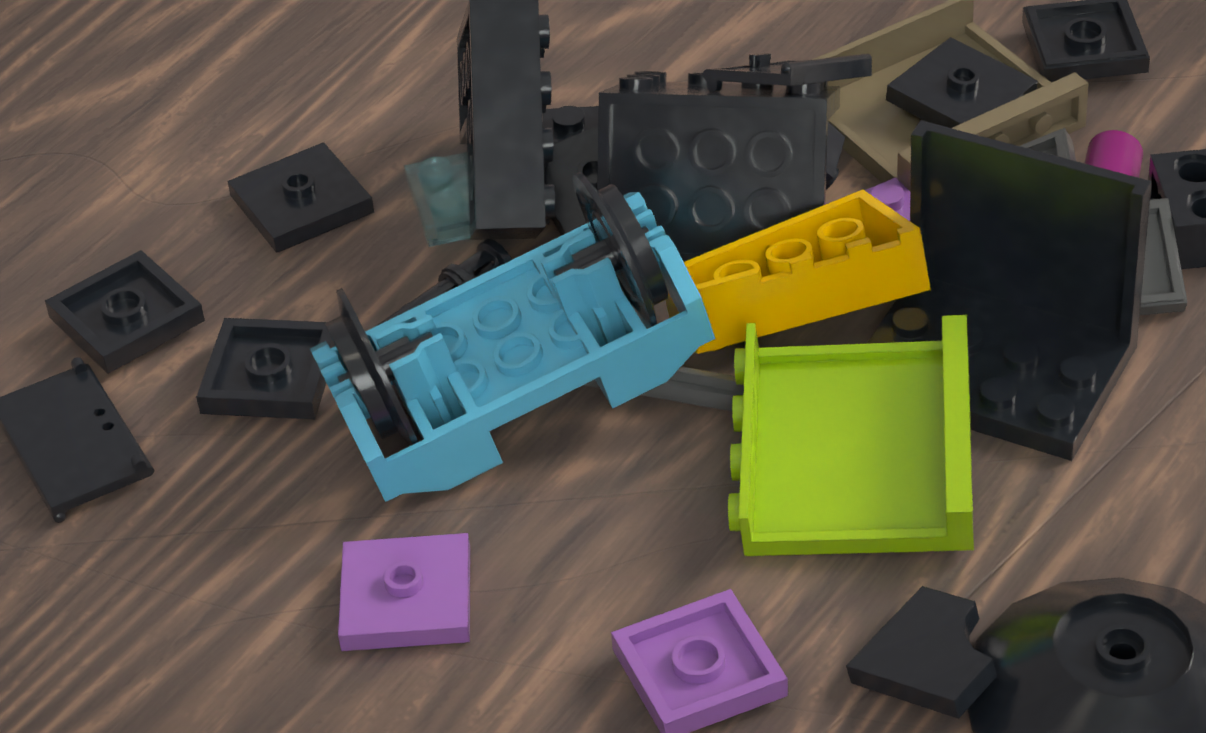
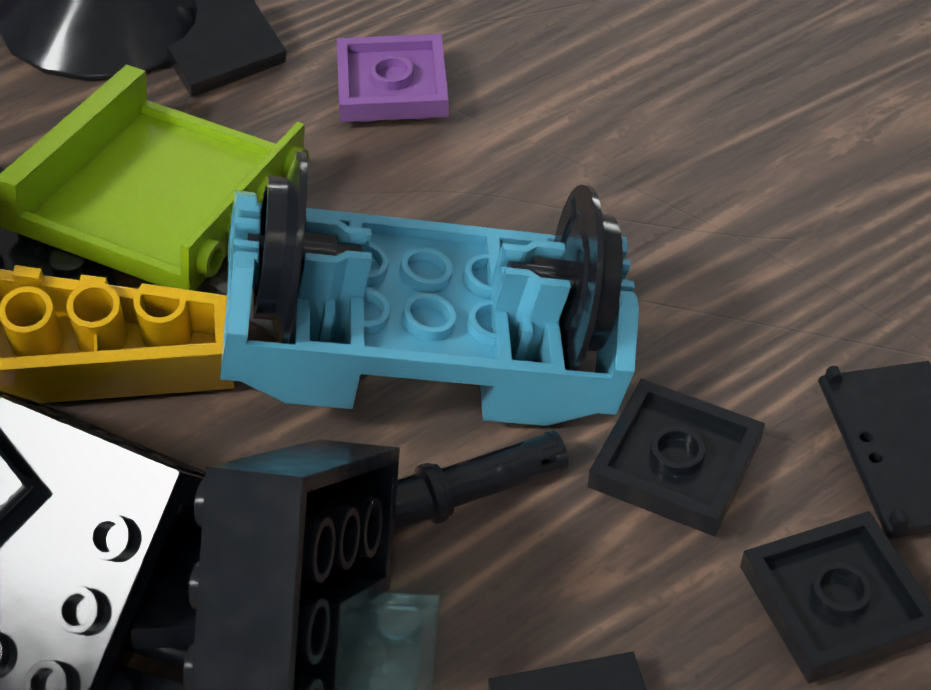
camera: 165 degrees left, 5 degrees up
(405, 592) = (624, 190): medium lavender plate -> none

